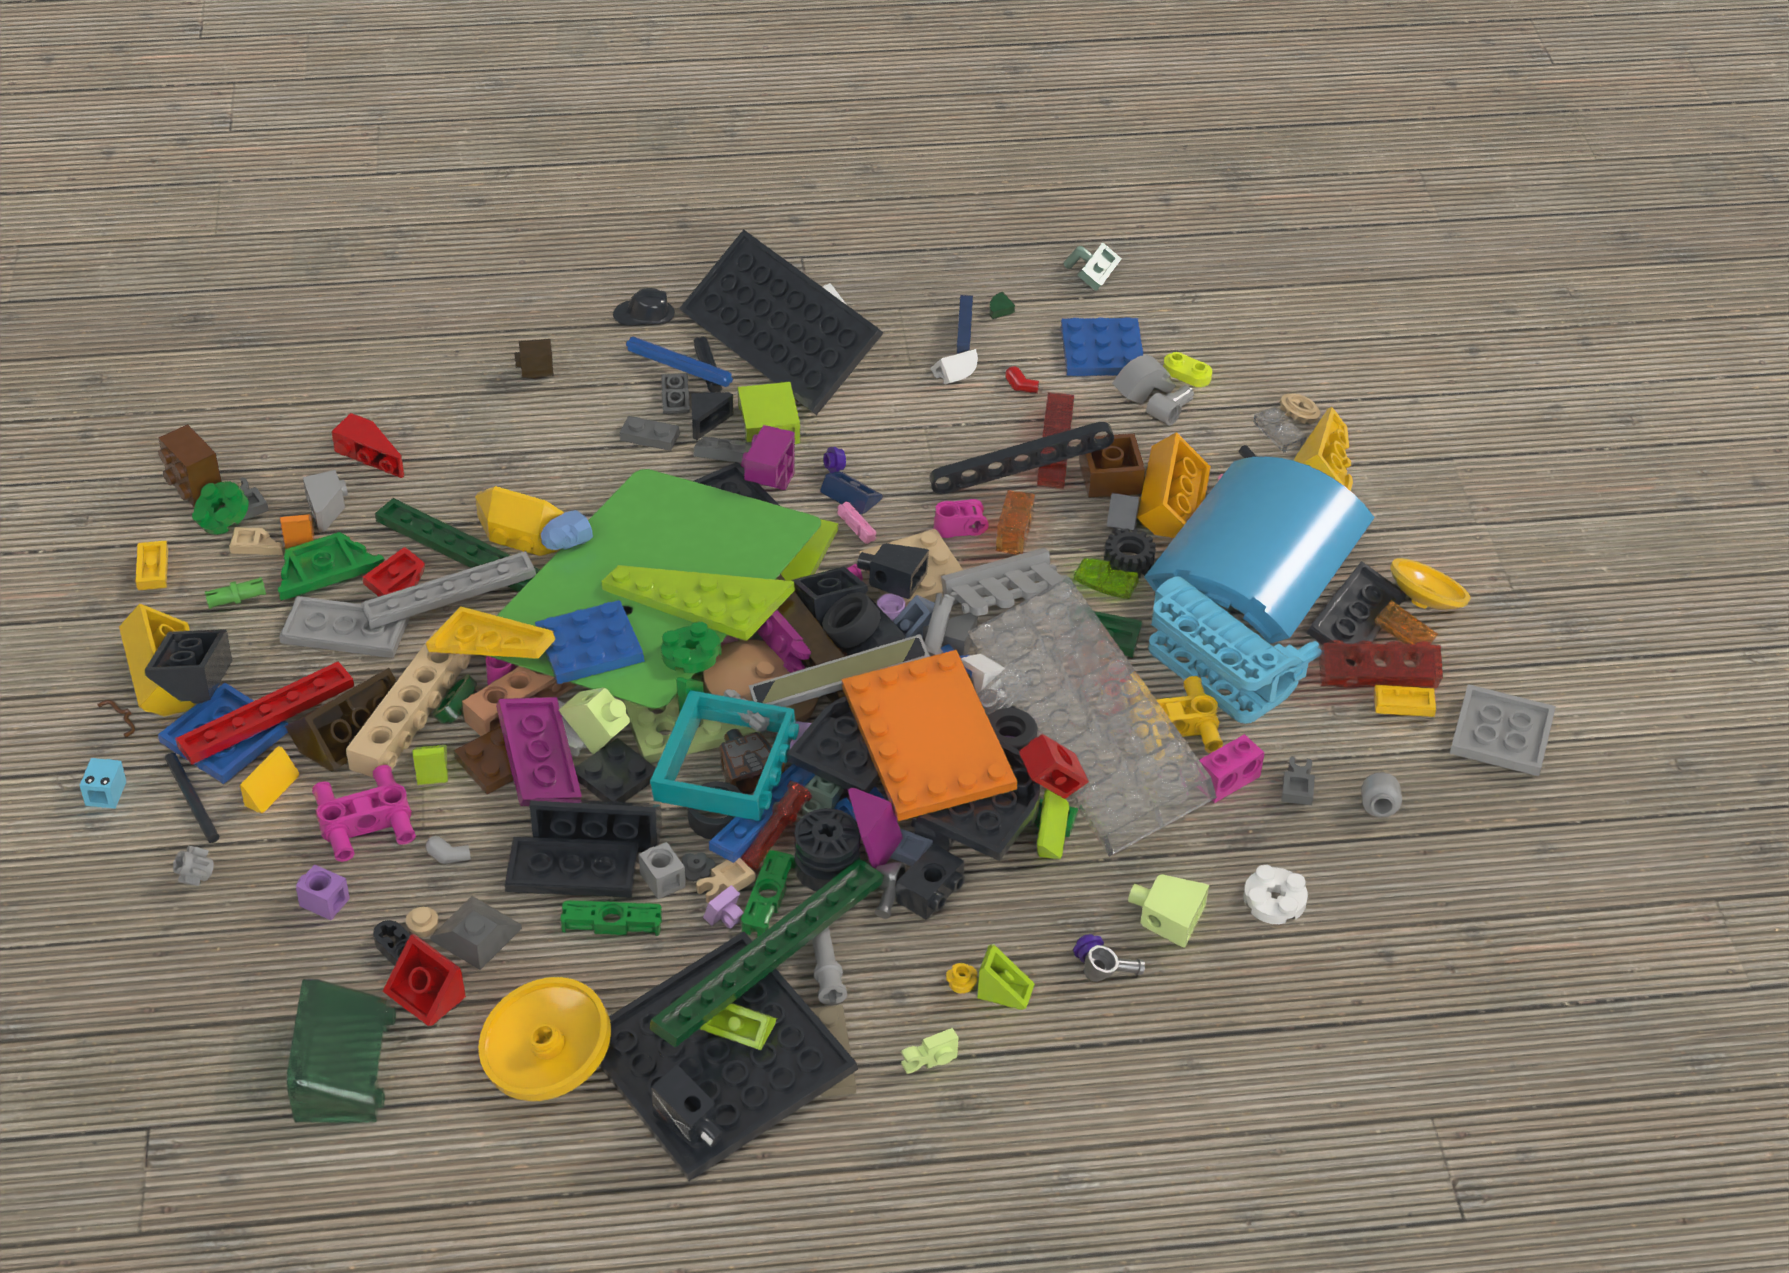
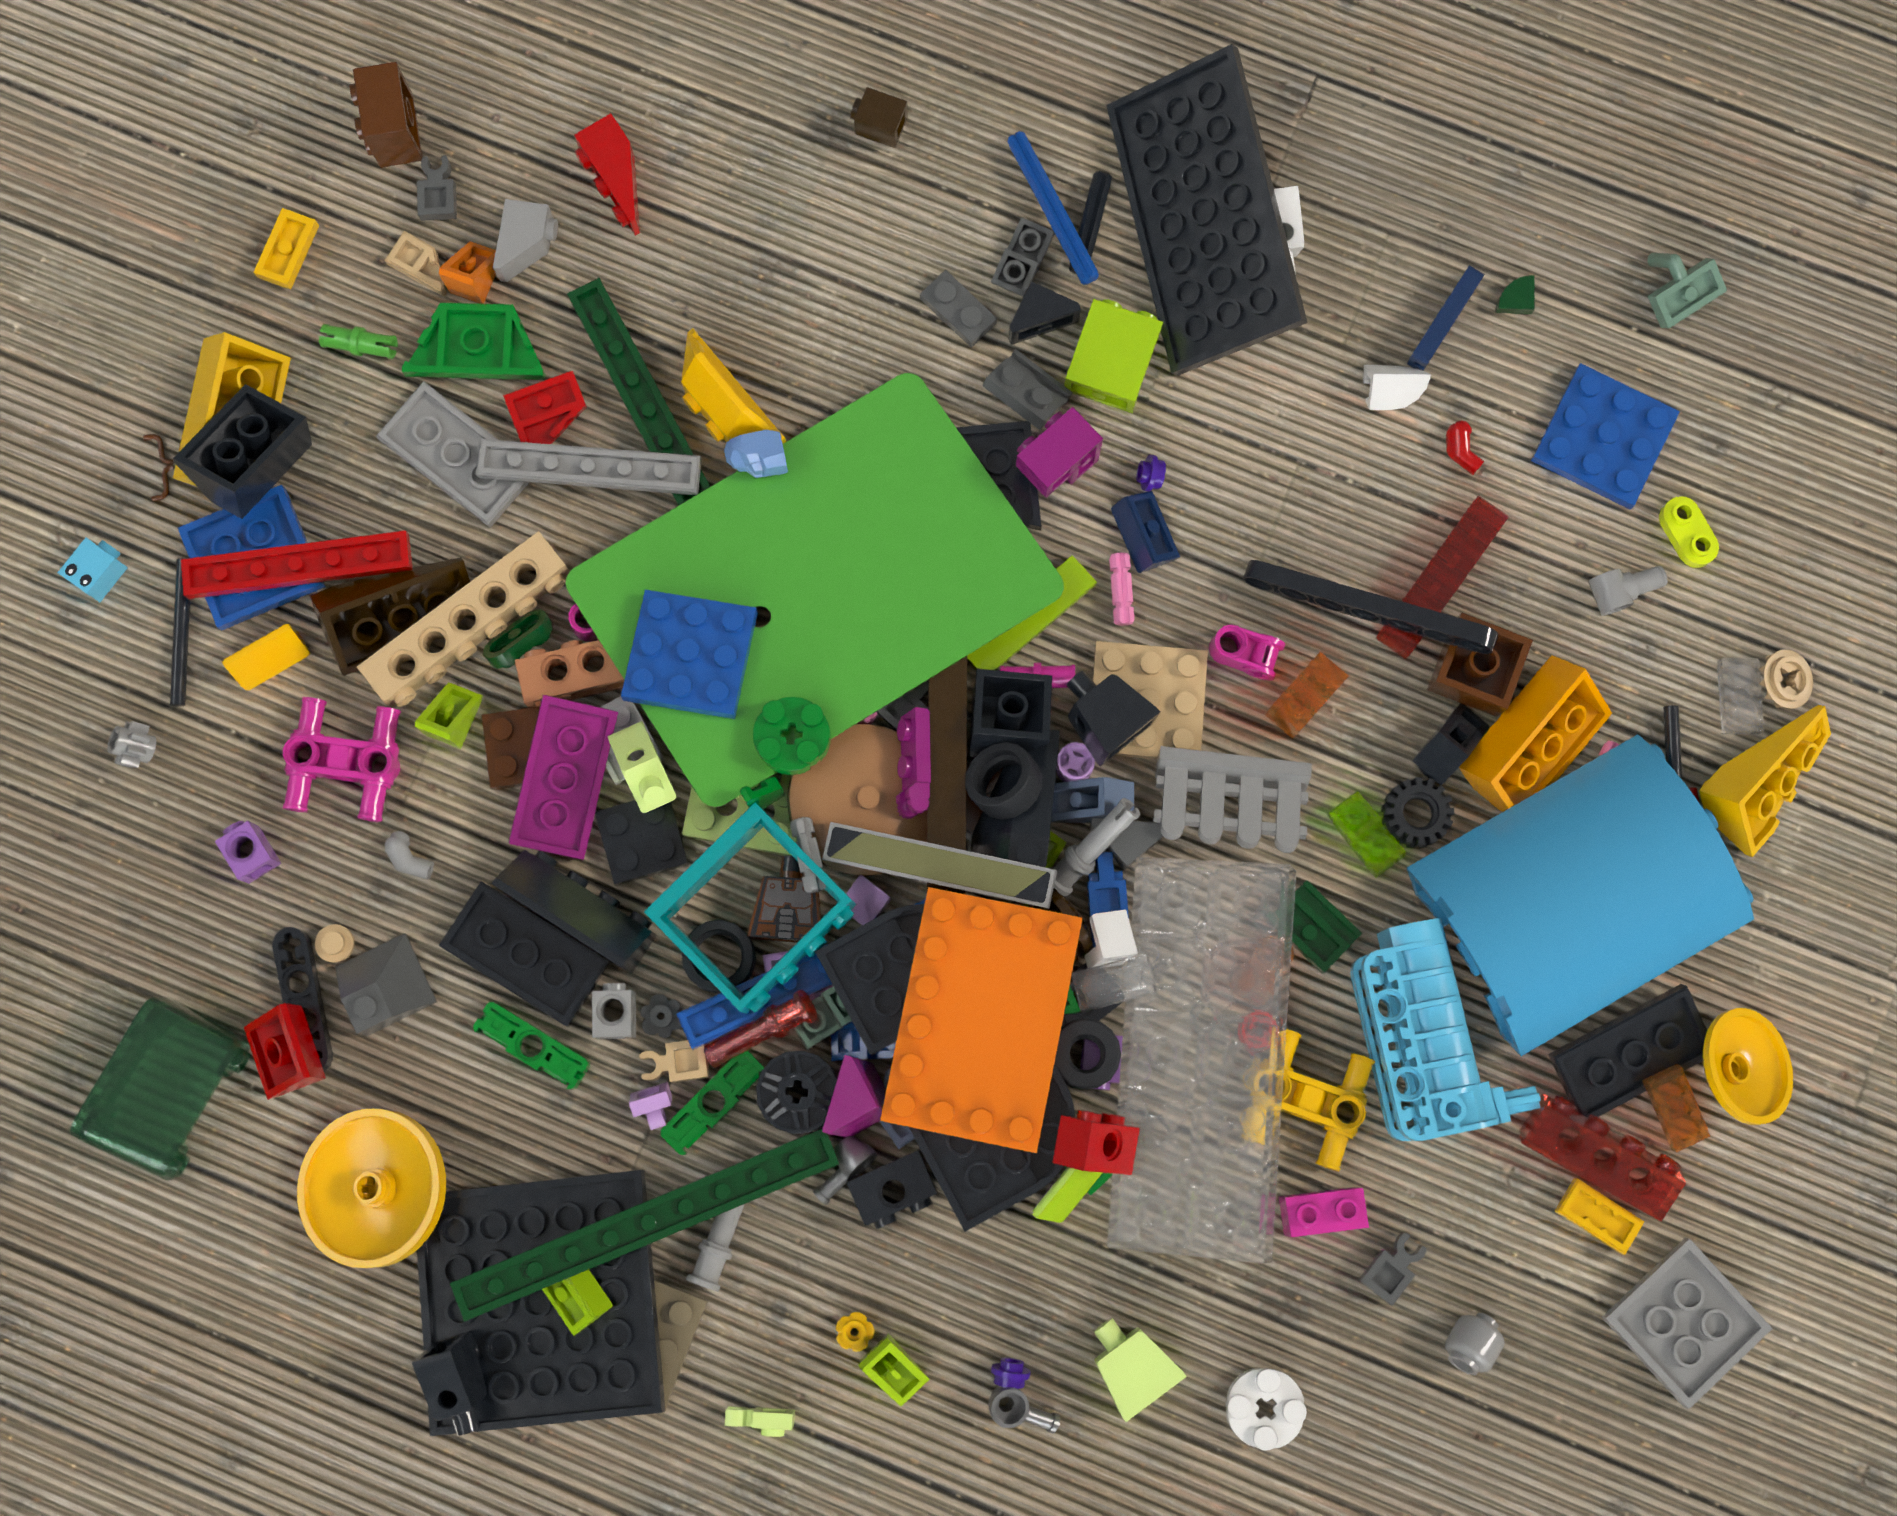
camera: 30 degrees right, 35 degrees up
(214, 496) = (381, 192): green plate -> none
(489, 635) = (578, 584): yellow wing -> none
(645, 307) = (1065, 83): black piece -> none
(721, 601) = (863, 666): lime wing -> none
(1141, 377) = (1613, 532): light grey brick -> none

